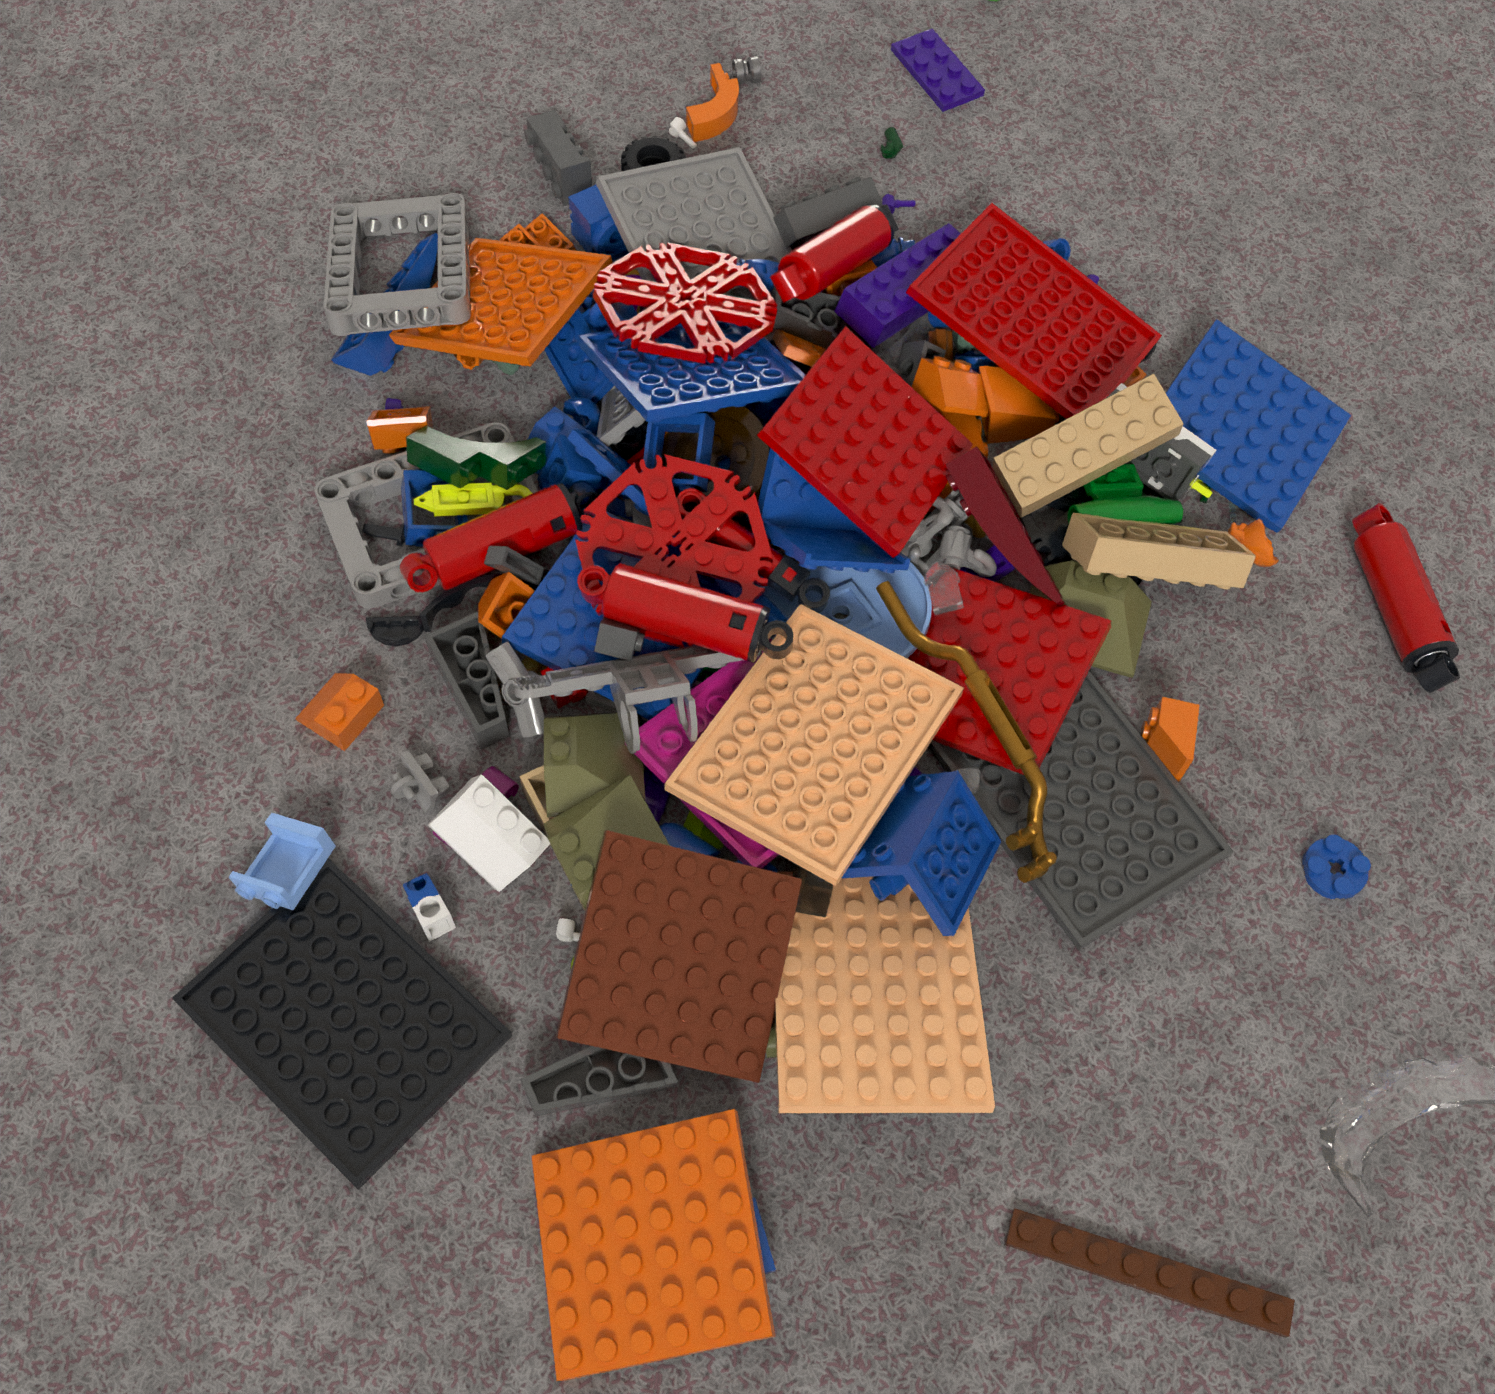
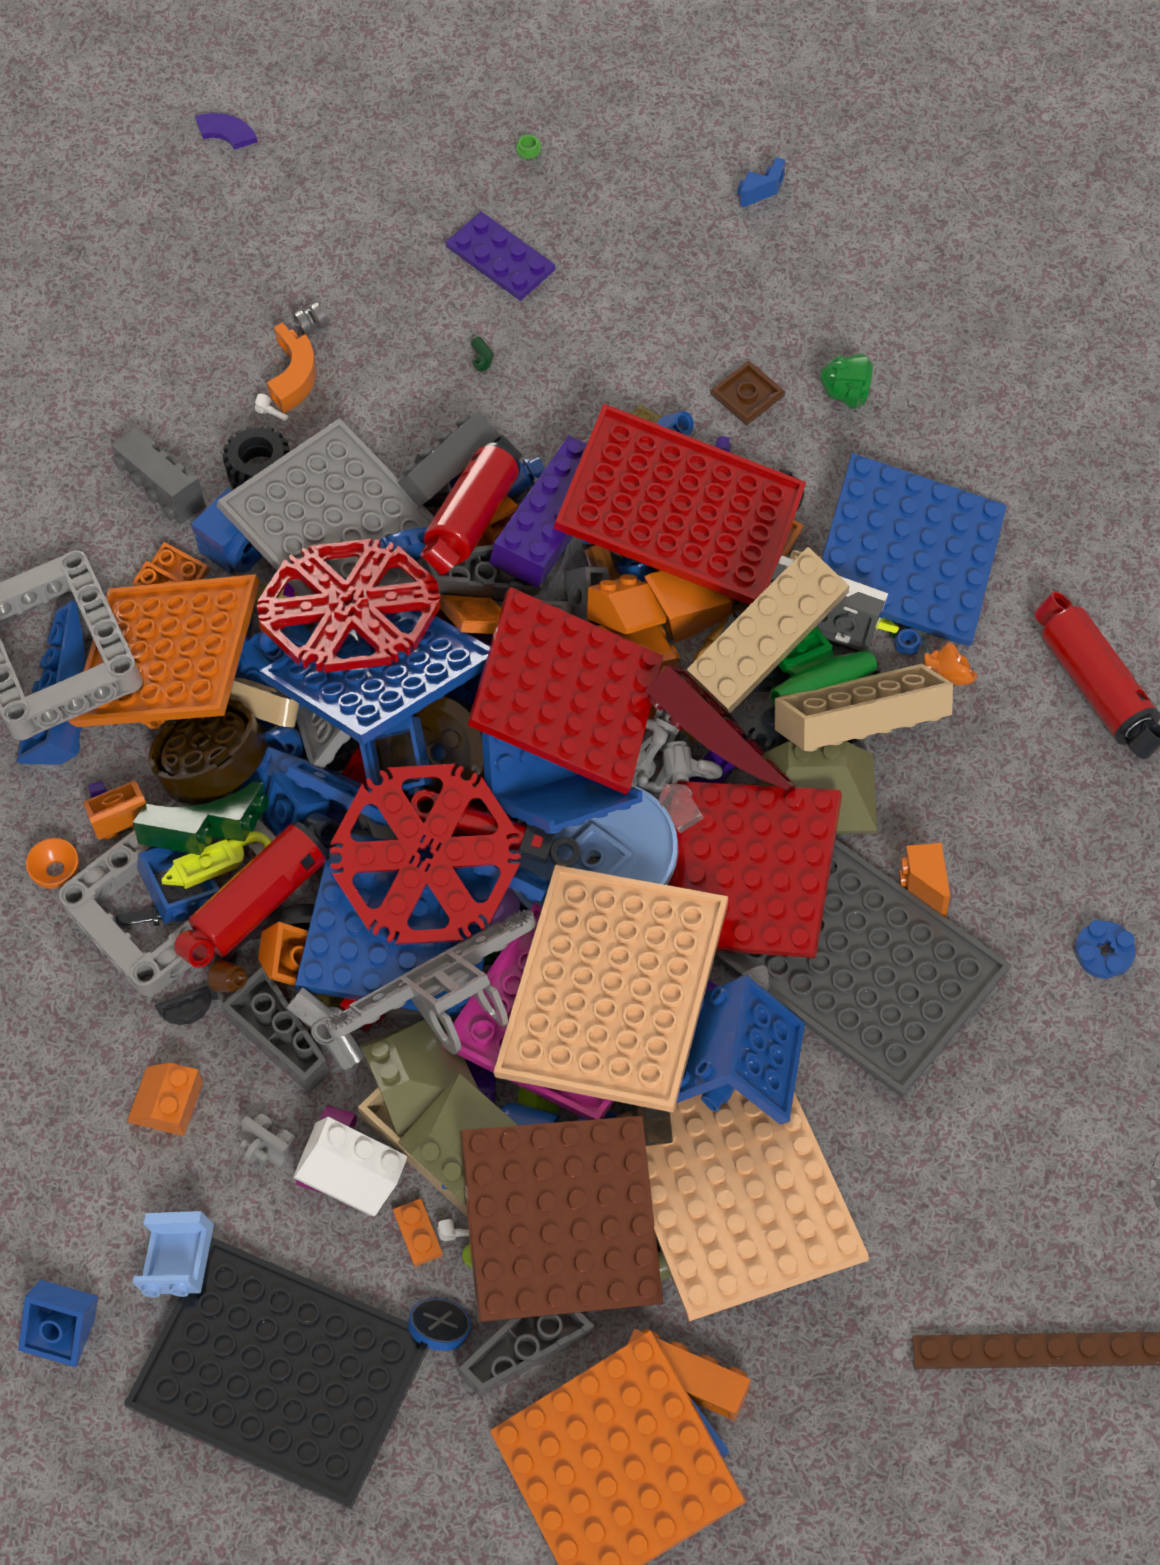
camera: 10 degrees left, 0 degrees up
(142, 891) = (56, 1322): none -> blue slope
(321, 448) = (49, 852): none -> orange piece
(428, 907) = (318, 1249): white leg -> none
(440, 609) = (226, 976): none -> reddish brown hat
(505, 400) = (207, 755): none -> dark brown brick
(507, 560) = (278, 911): dark grey piece -> none
(520, 1024) = (439, 1324): none -> tile
(535, 923) = (417, 1232): none -> orange plate
(575, 372) = (265, 702): none -> tan beam
(618, 639) = (404, 950): dark grey brick -> none
(685, 612) = (458, 910): red piece -> none
(774, 1179) = (704, 1380): none -> orange brick
(892, 203) = (500, 420): dark purple hand -> none
(1003, 726) = (771, 918): pearl gold piece -> none
(1128, 246) = (747, 392): none -> reddish brown tile
(1197, 78) = (758, 186): none -> blue slope
(1217, 503) = (911, 636): none -> blue plate
(1229, 259) = (848, 379): none -> green helmet

